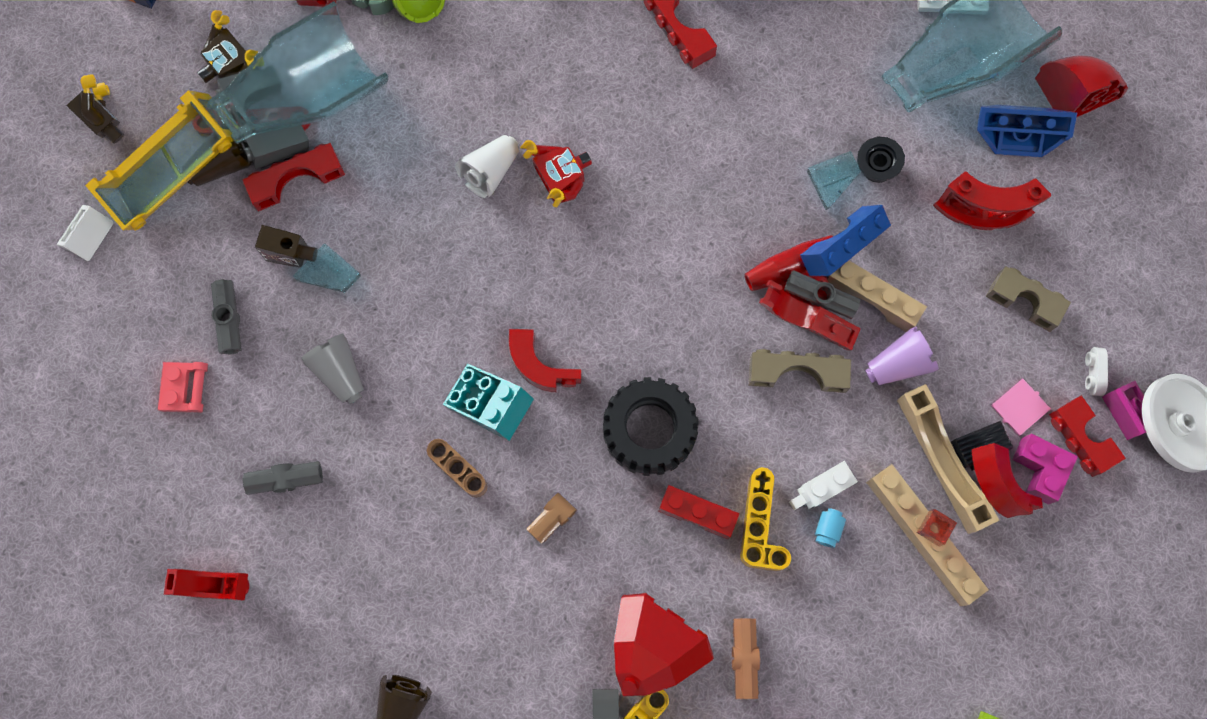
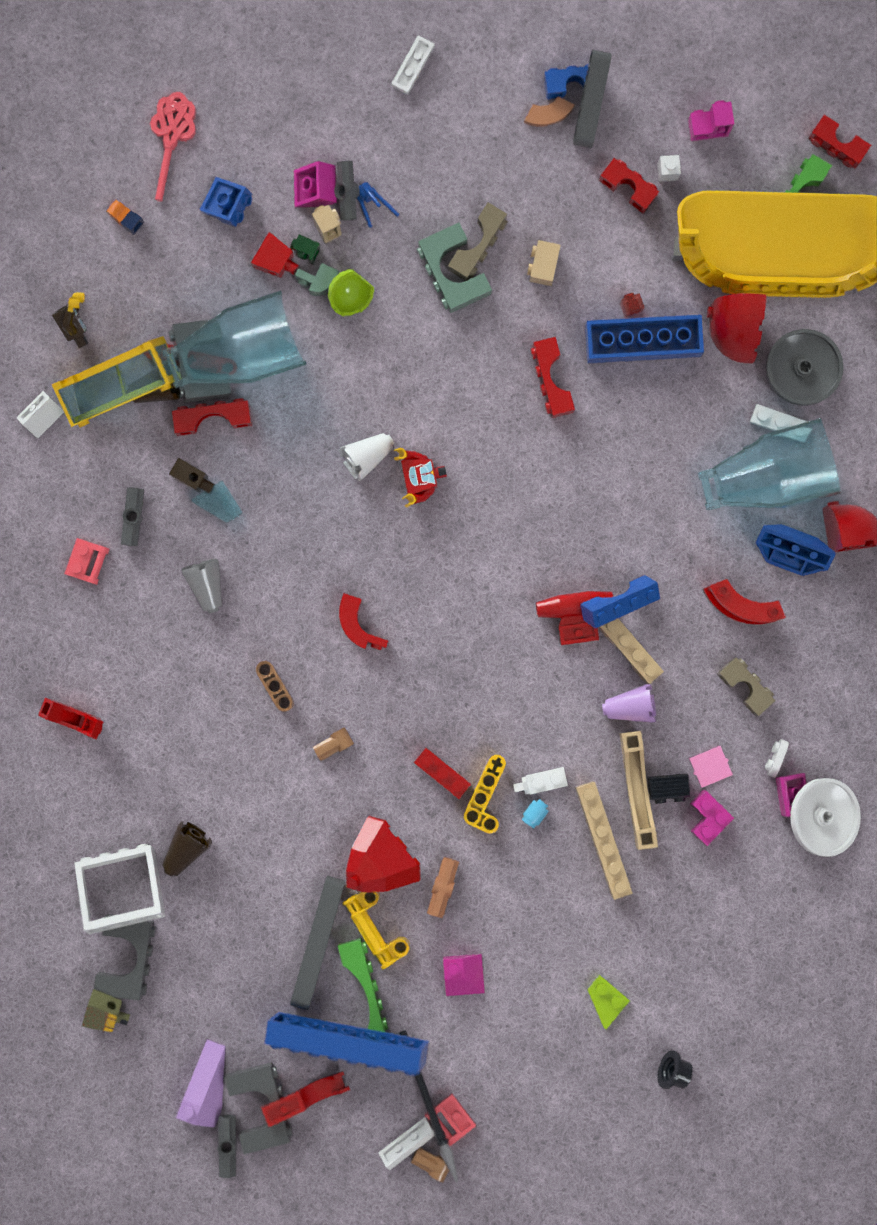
camera: 15 degrees right, 10 degrees up
(223, 52) = (184, 298): torso -> none
(282, 477) = (144, 654): dark grey piece -> none
(489, 401) = (312, 642): teal slope -> none
(657, 394) = (445, 680): black tyre -> none
(809, 317) = (573, 652): red piece -> none
(831, 373) = (575, 698): dark tan arch -> none
(833, 177) = (631, 544): clear light blue wing -> none
(836, 300) = (596, 646): dark grey piece -> none
(880, 159) = (671, 542): black piece -> none
(944, 524) = (615, 839): clear red plate -> none
(998, 482) = (666, 820): red arch -> none
(1094, 456) = (743, 788): red arch -> none

